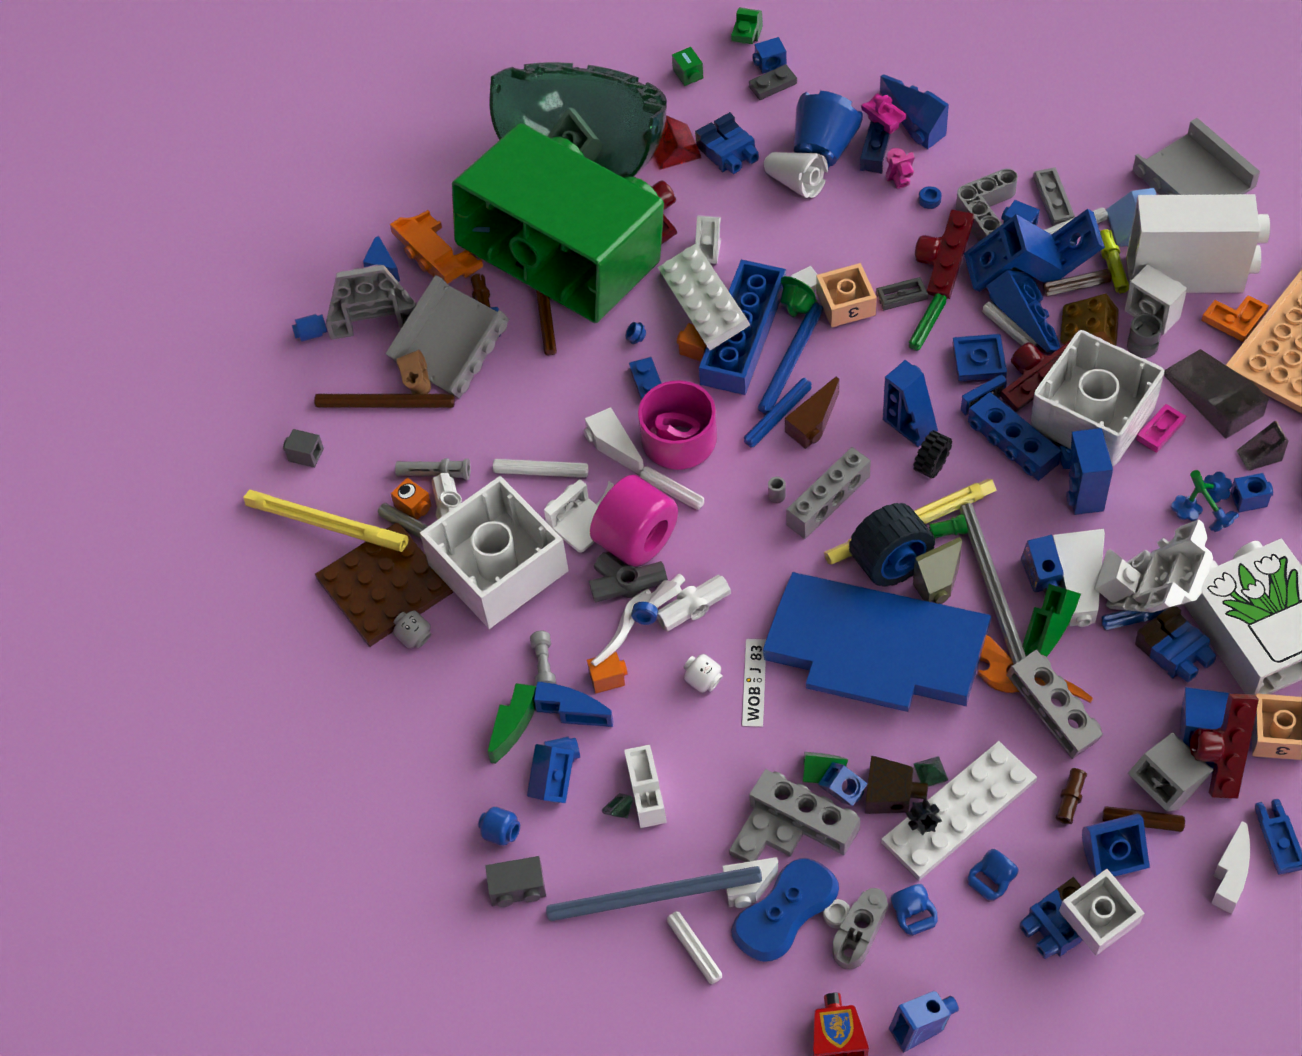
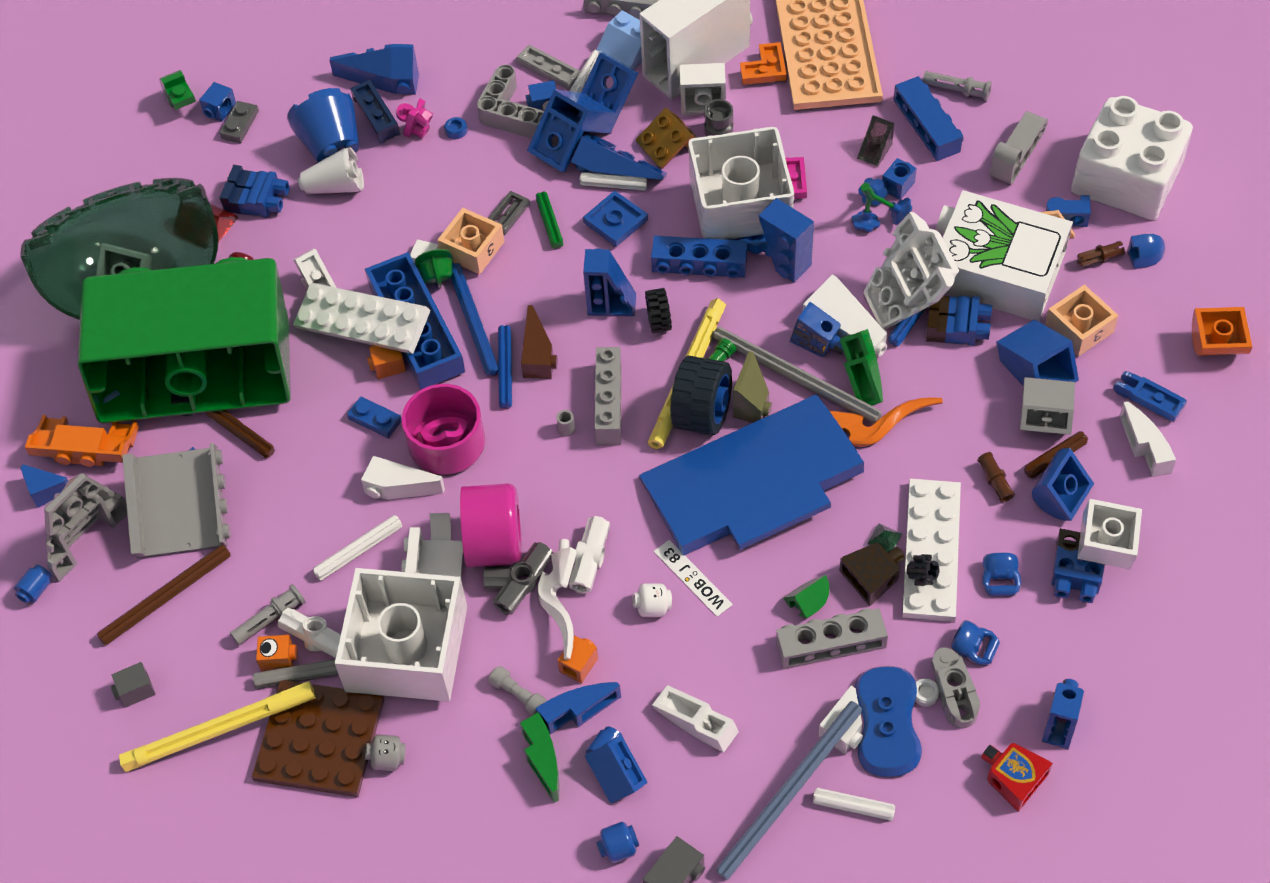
camera: 45 degrees left, 0 degrees up
(414, 372) = (170, 550): medium nougat piece -> none
(480, 291) = (156, 445): reddish brown axle -> none
(619, 806) = (690, 749): slope -> none
(635, 332) = (328, 386): blue plate -> none
(644, 613) = (565, 589): blue tile -> none
(672, 488) = (454, 486): white axle -> none
(687, 66) = (155, 153): green brick -> none
(764, 830) = (814, 677): light grey plate -> none
(833, 781) = (840, 595): blue brick -> none
(883, 111) = (365, 83): dark pink hips -> none
(945, 252) = (513, 159): dark red plate -> none
(994, 386) = (645, 246): blue tile -> none
(1034, 368) = (669, 198): dark red plate -> none
(1055, 718) = (933, 429): light grey brick -> none
(1077, 282) = (629, 116): axle -> none
(1112, 257) = (651, 90): neon yellow pin -> none
(1116, 578) = (878, 299): white slope -> none
(1218, 392) = (809, 125): clear smoke slope -> none
(1227, 745) = (1070, 357): dark red plate -> none

